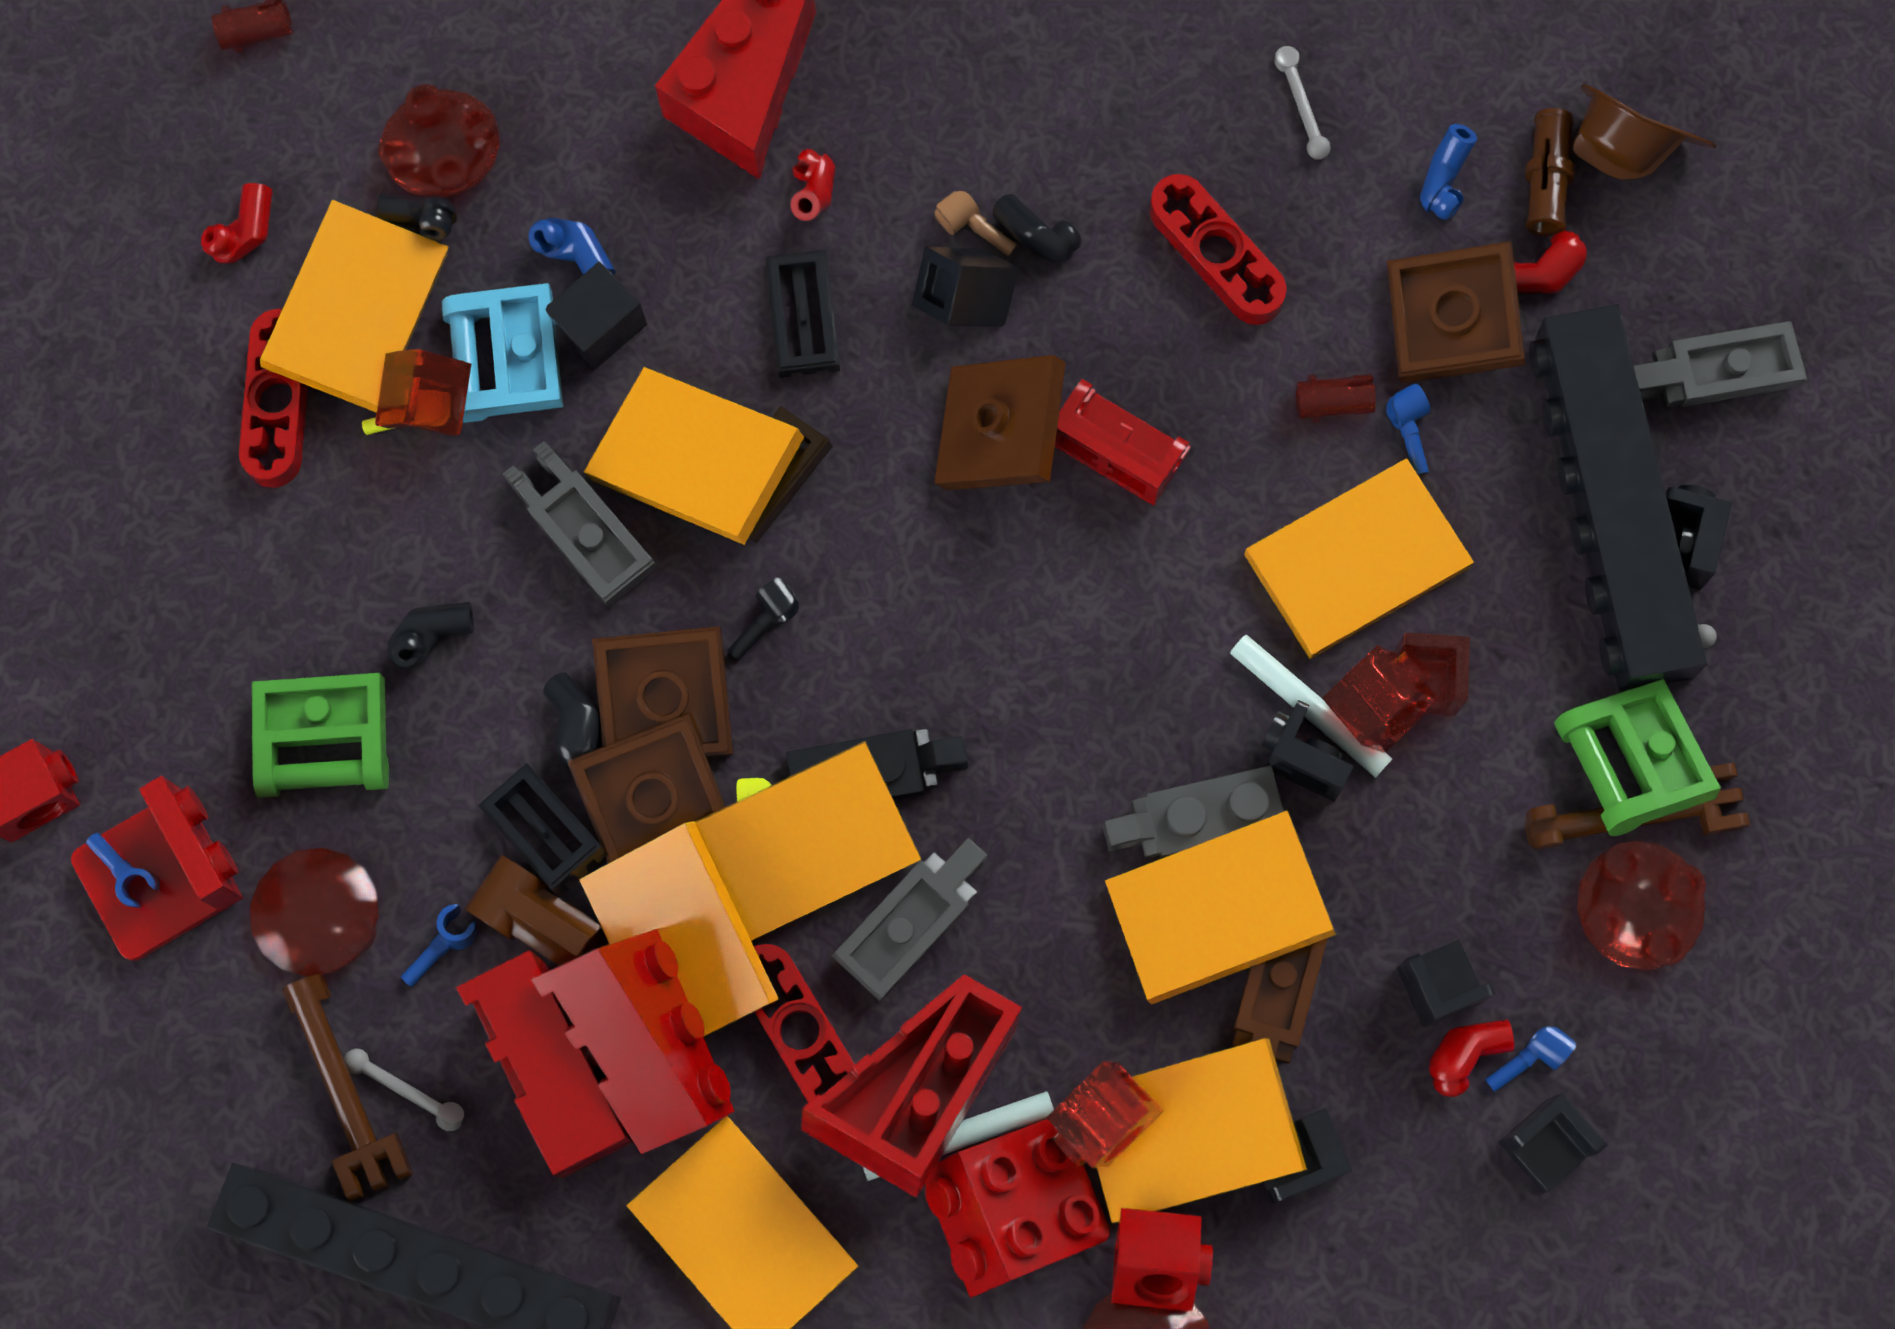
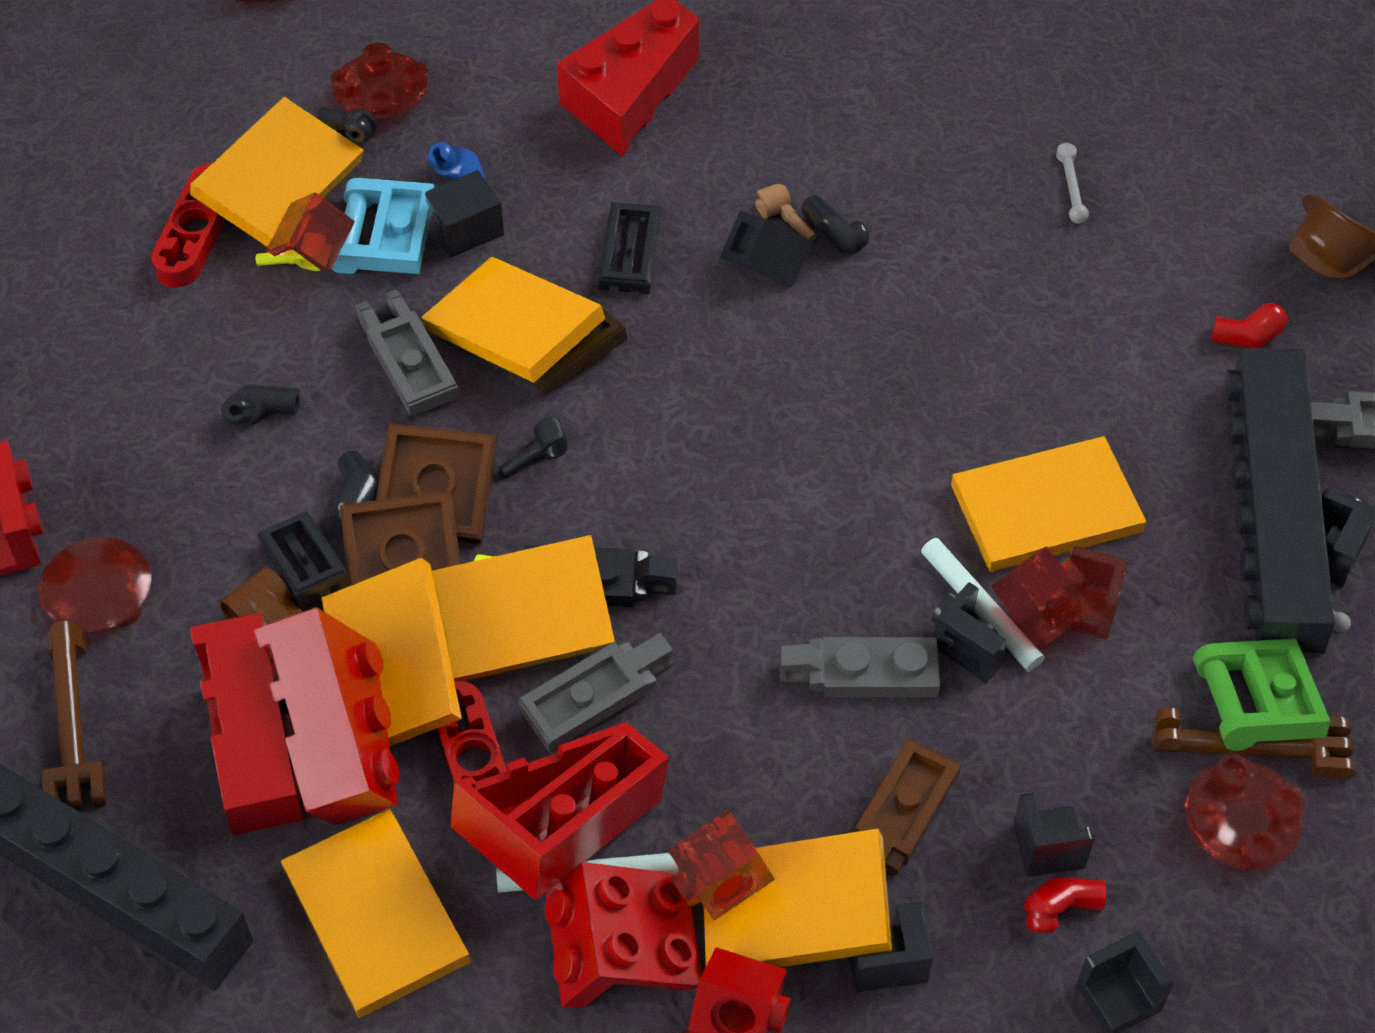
camera: 10 degrees right, 20 degrees down
(244, 234) = (209, 116): red arm -> none
(319, 714) = (150, 442): bright green plate -> none
(440, 944) = (202, 610): blue hand -> none
(448, 1115) = (152, 762): light grey hinge -> none
(817, 195) = (663, 162): red arm -> none
(1000, 423) = (768, 342): reddish brown plate -> none
(1118, 444) = (860, 381): red hinge -> none
(1177, 226) = (979, 286): red beam -> none
(1219, 907) = (864, 731): light orange tile -> none
(1335, 396) = (1053, 383): clear red pin -> none
(1403, 411) = (1113, 401): blue hand -> none
(1443, 169) = (1172, 257): blue arm -> none
(1456, 312) = (1168, 342): reddish brown plate -> none
(1547, 1044) = (1136, 907): blue hand -> none
(1549, 171) = (1266, 261): reddish brown pin -> none

